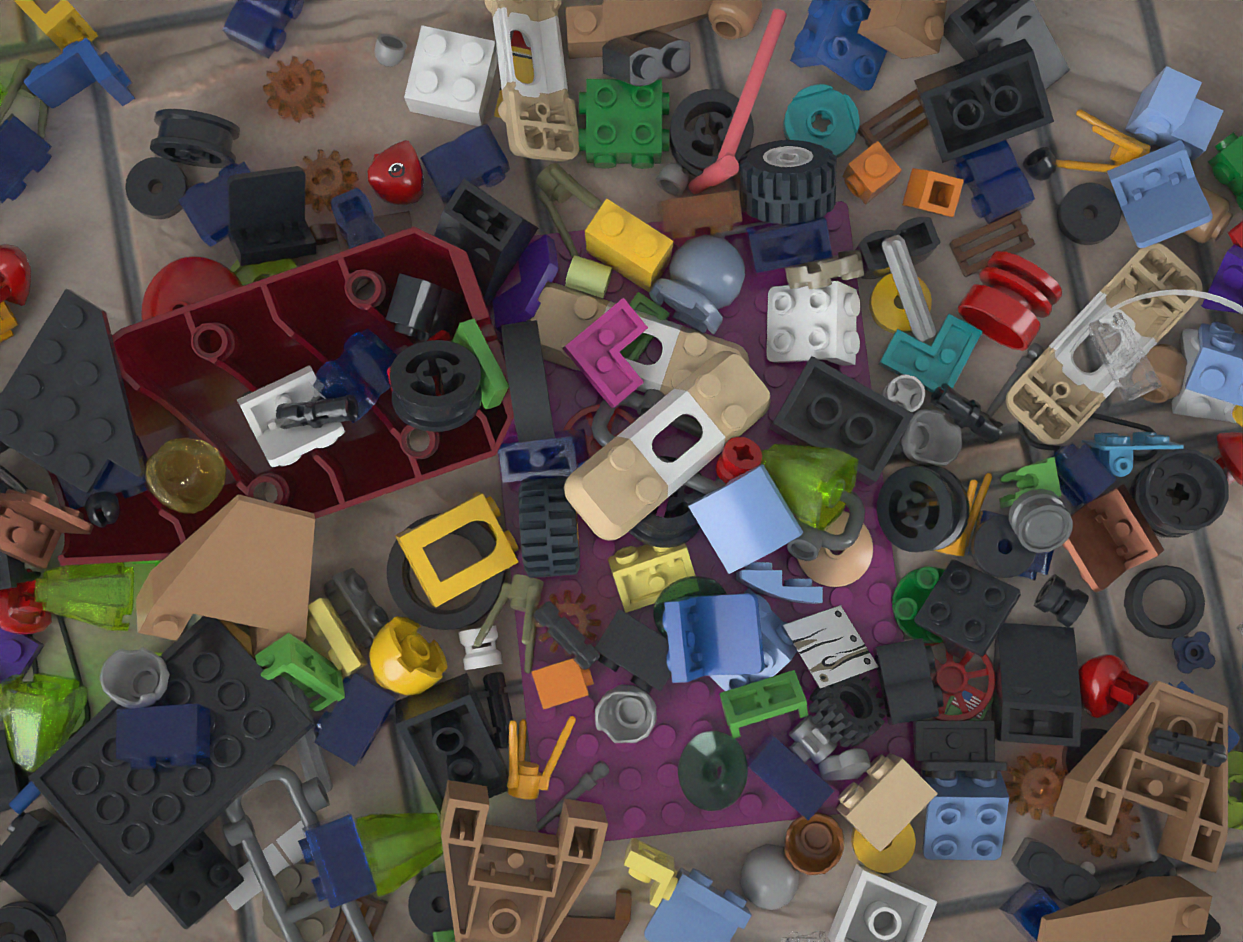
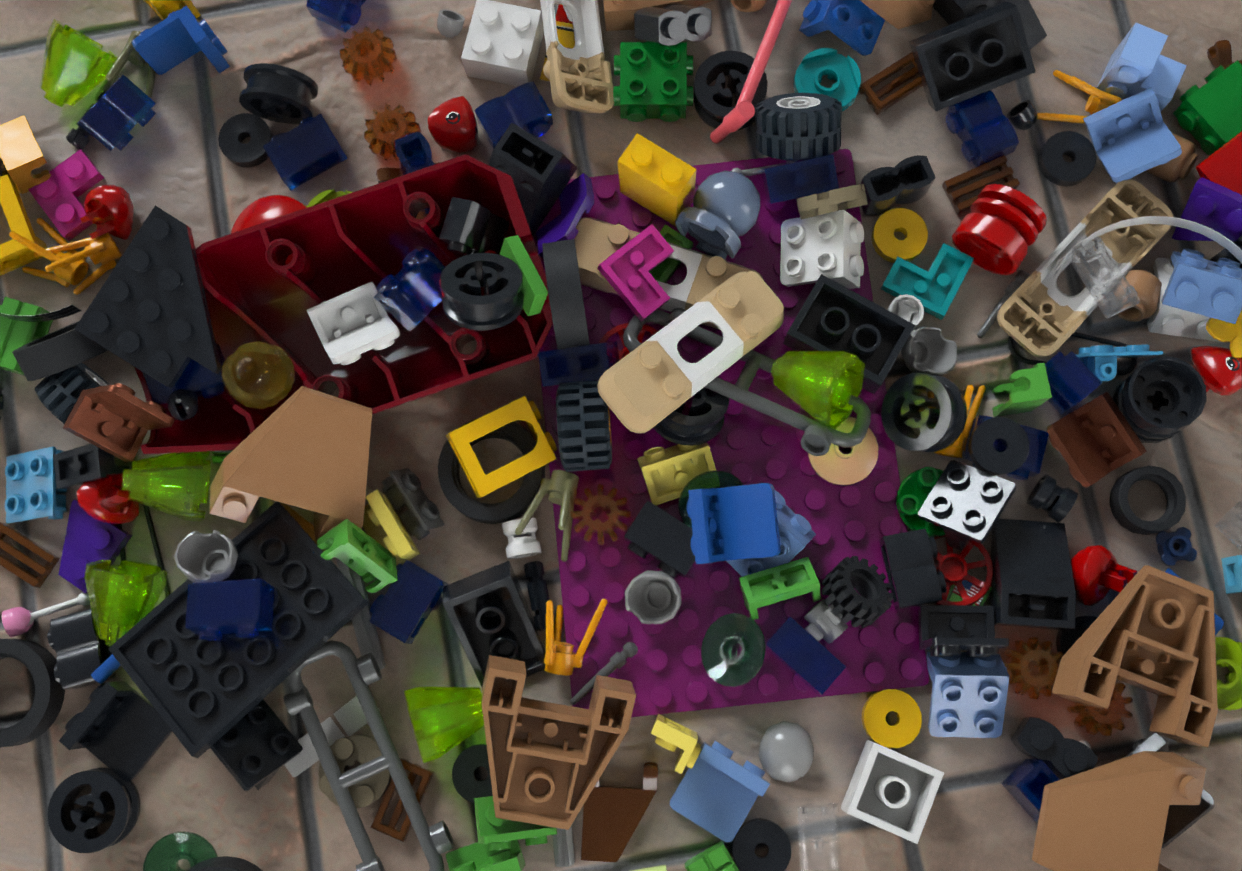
camera: 10 degrees right, 5 degrees down
(268, 216) = (339, 154): black bracket -> none
(318, 411) = (377, 318): black pin -> none
(338, 860) = (387, 728): clear blue brick -> none
(405, 659) = (452, 547): yellow cylinder -> none
(561, 186) = (597, 136): olive plant -> none
(562, 683) = (595, 567): orange brick -> none
(566, 635) = (599, 522): black axle -> none
(588, 276) = (621, 210): yellowish green piece -> none
(673, 179) = (696, 130): light grey hinge -> none
(691, 212) = (722, 150): clear orange plate -> none
(746, 519) = (763, 415): medium blue slope -> none
(748, 457) = (755, 366): red wheel -> none
(768, 582) = (783, 477): medium blue slope -> none
(814, 844) = (827, 719): dark orange hair -> none
(830, 646) = (840, 536): white sticker -> none
(847, 765) = (857, 646): light grey tile -> none
(871, 173) = (872, 122): orange brick -> none
(885, 800) = (893, 676): tan brick -> none
(908, 287) = (908, 217): light grey axle -> none
(933, 192) = (927, 137): orange brick -> none
(966, 413) = (961, 330): black pin -> none
(1040, 520) = (1033, 418): dark grey wheel -> none
(1187, 747) = (1177, 626): black axle -> none

